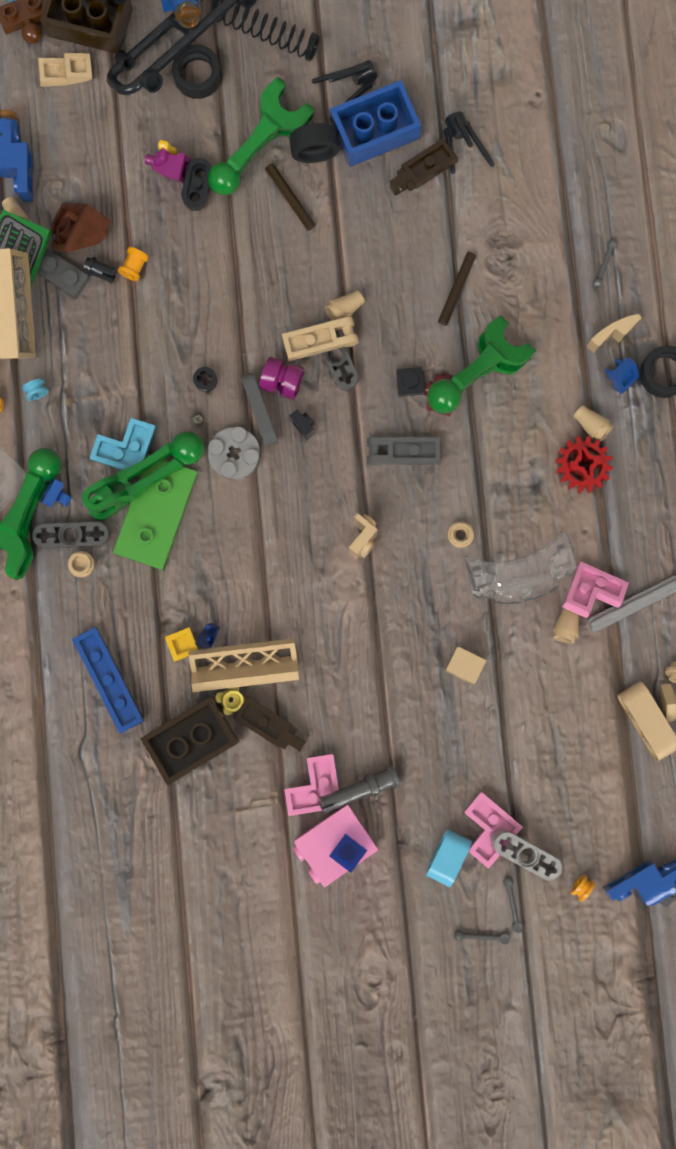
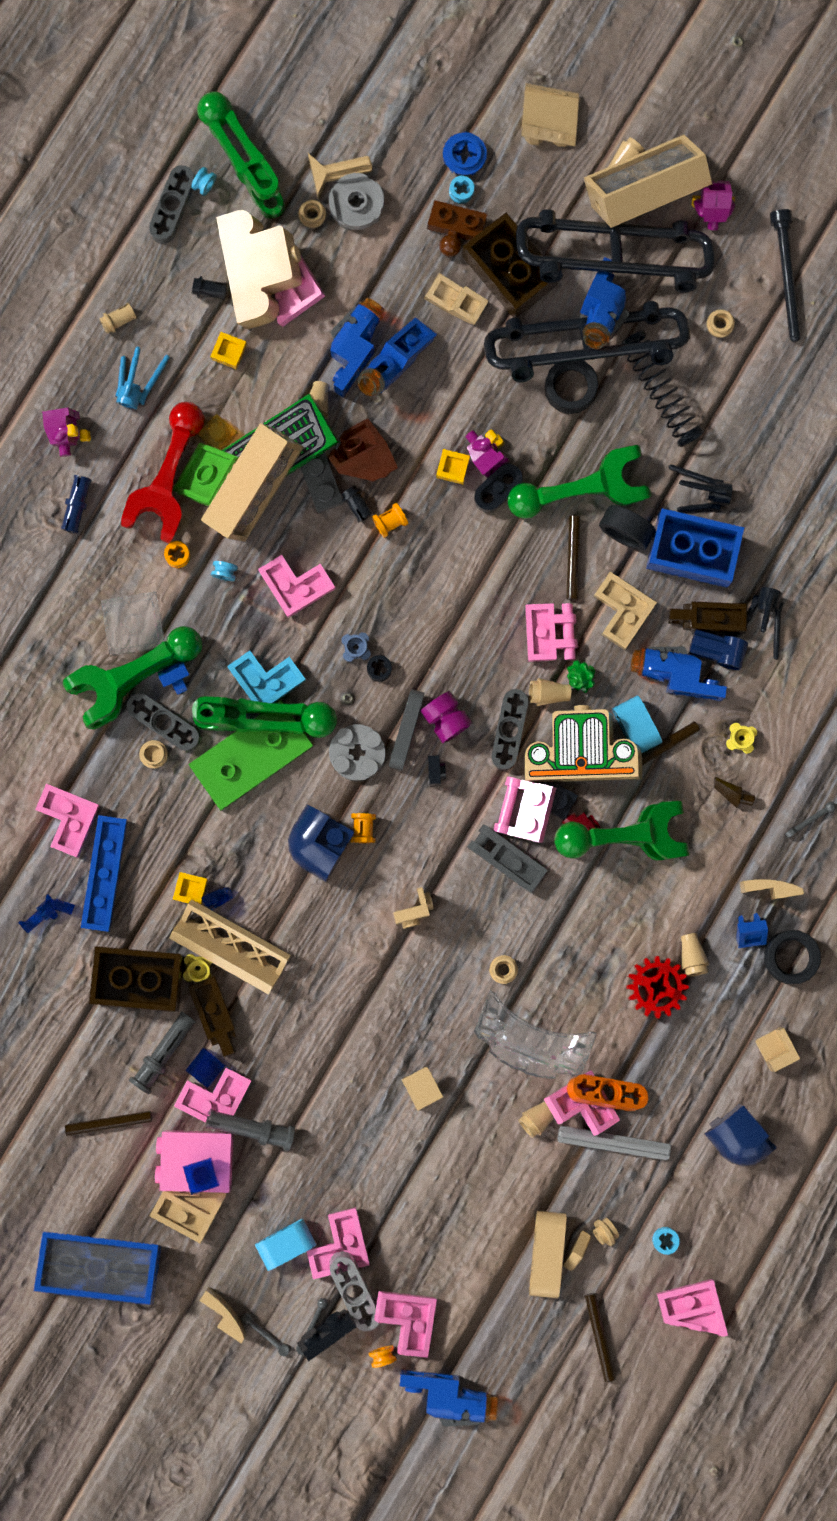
camera: 30 degrees right, 0 degrees up
(50, 140) = (395, 357): none -> blue plate
(55, 653) = (75, 817): none -> bright pink plate
(84, 740) = (46, 910): none -> clear blue piece
(100, 368) = (292, 592): none -> bright pink plate
(151, 192) = (452, 466): none -> yellow plate
(176, 368) = (360, 640): none -> sand blue plate
(248, 865) = (108, 1123): none -> dark brown bar
(251, 795) = (155, 1064): none -> dark grey pin
(253, 539) = (318, 842): none -> dark blue brick
(277, 496) = (363, 828): none -> light orange bush
(291, 769) = (205, 1067): none -> clear blue plate
(307, 267) = (541, 632): none -> bright pink plate
(319, 338) = (504, 706): tan plate -> none
(319, 981) = (97, 1268): none -> clear brick
(358, 200) = (630, 606): none -> tan plate
(358, 888) = (187, 1212): none -> tan wing
(359, 278) = (581, 676): none -> green plant
(397, 401) = (533, 810): none -> plate
(402, 329) = (583, 750): none -> brick
(427, 284) = (637, 723): none -> medium azure beam
(430, 222) = (679, 669): none -> blue plate
(449, 947) = (230, 1322): none -> tan slope
(453, 184) = (726, 650): none -> dark blue piece
(514, 233) = (748, 734): none -> light yellow plate
(531, 896) = (319, 1339): none -> black plate
(534, 284) = (733, 793): none -> dark brown bar
(584, 840) = (414, 1315): none -> bright pink plate
(599, 577) = (596, 1098): none -> orange beam

